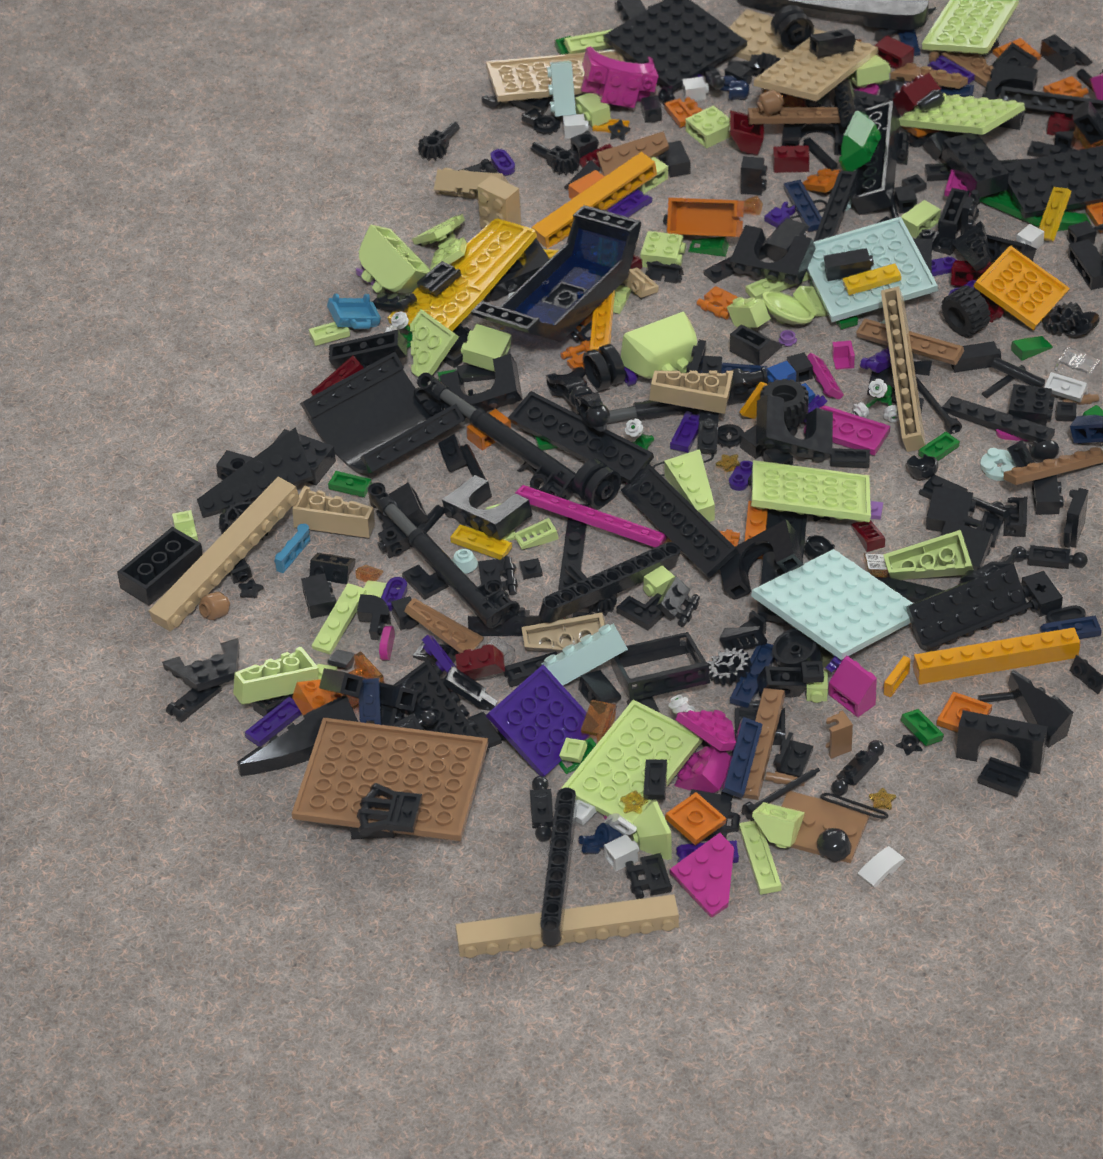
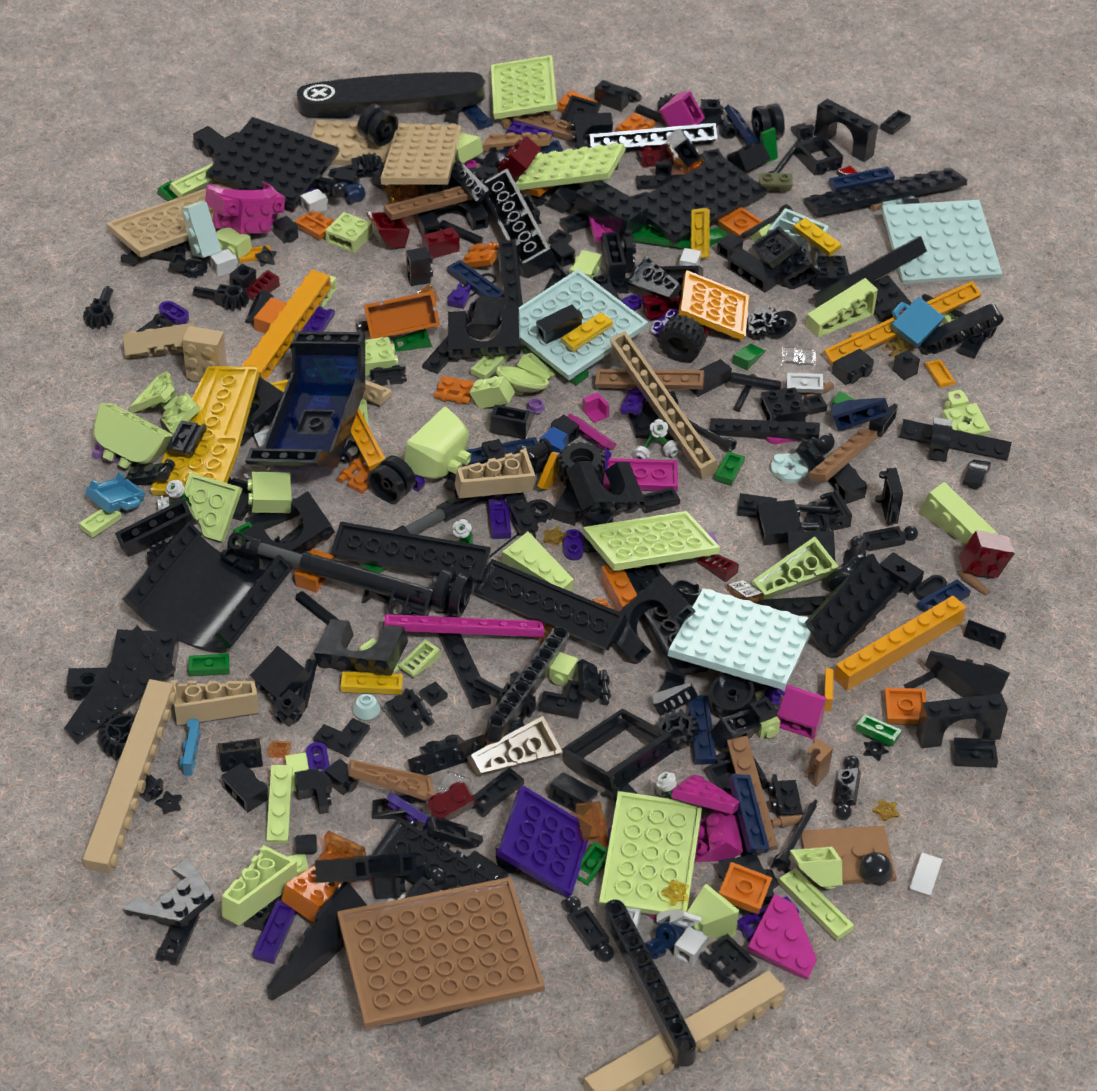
camera: 30 degrees left, 0 degrees up
(159, 565) = (66, 808): black brick -> none
(185, 523) = (64, 760): yellowish green slope -> none
(214, 605) = (144, 832): medium nougat head -> none
(345, 370) = (140, 562): dark red plate -> none
(370, 701) = (374, 887): dark blue plate -> none
(386, 643) = (341, 813): dark pink tile -> none
(402, 812) = (478, 980): black plate -> none
(452, 453) = (292, 604): black plate -> none
(487, 600) = (421, 739): black piece -> none
(573, 750) = (587, 860): yellowish green plate -> none
(576, 391) = (412, 520): black piece -> none
(586, 655) = (548, 760): light aqua brick -> none
(614, 157) = (285, 281): medium nougat wing -> none
(655, 779) = (686, 862): black plate -> none
(666, 94) = (287, 212): black plate -> none
(676, 159) = (336, 266): black brick -> none
(697, 354) = (477, 444): black wing -> none
(770, 102) = (404, 195): medium nougat head -> none
(832, 42) = (426, 129): black brick -> none
(853, 808) = (868, 827): black piece -> none
(858, 142) = (503, 212): green wedge -> none
(895, 52) = (475, 126): dark red brick -> none
(923, 467) = (728, 489): black hair -> none
(931, 100) = (540, 159): black cone -> none

